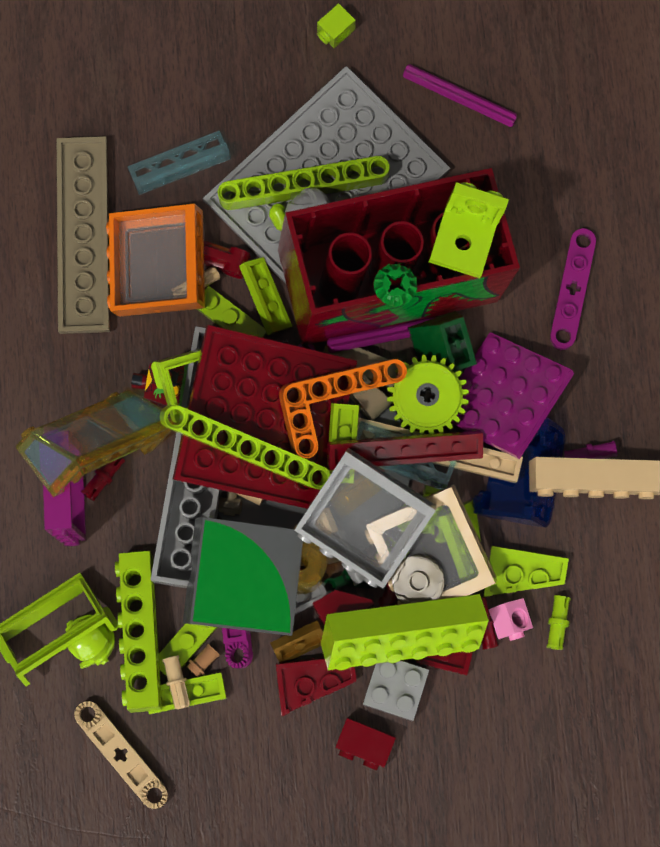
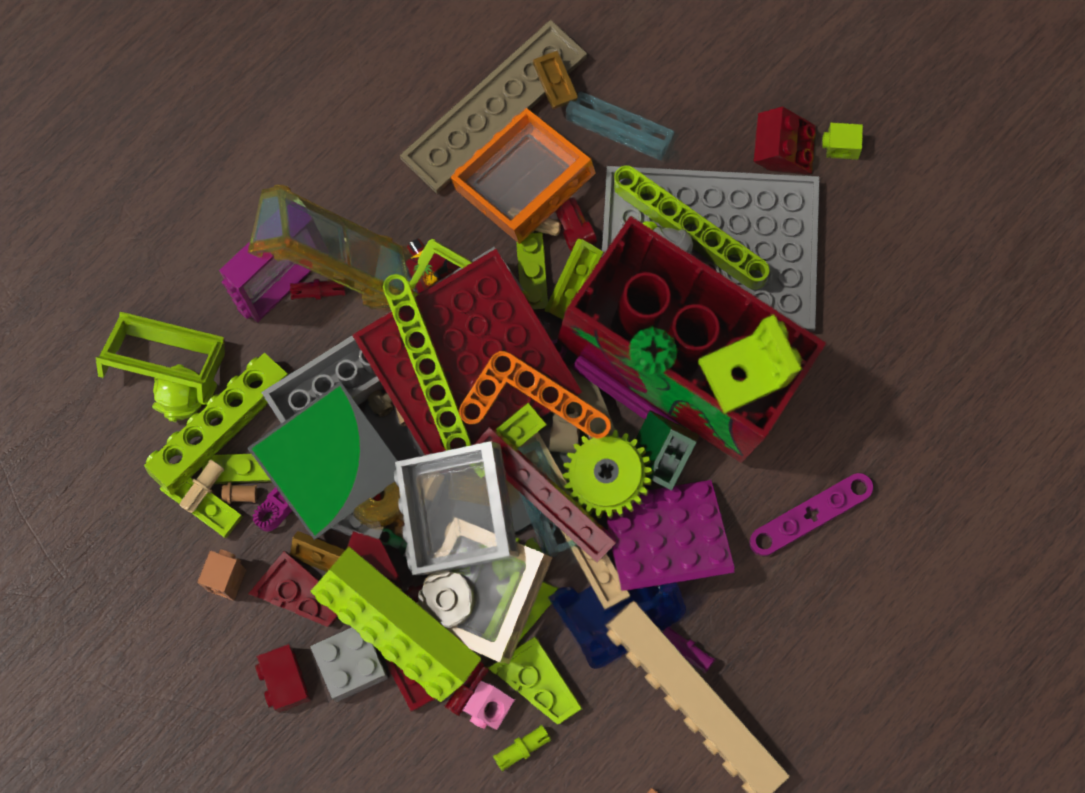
camera: 50 degrees right, 5 degrees down
(107, 175) = (555, 79): none -> pearl gold plate
(134, 769) = (107, 517): tan piece -> none
(254, 721) = (222, 574): none -> nougat brick
(299, 65) = (784, 142): none -> dark red slope
(459, 95) = (883, 285): magenta axle -> none

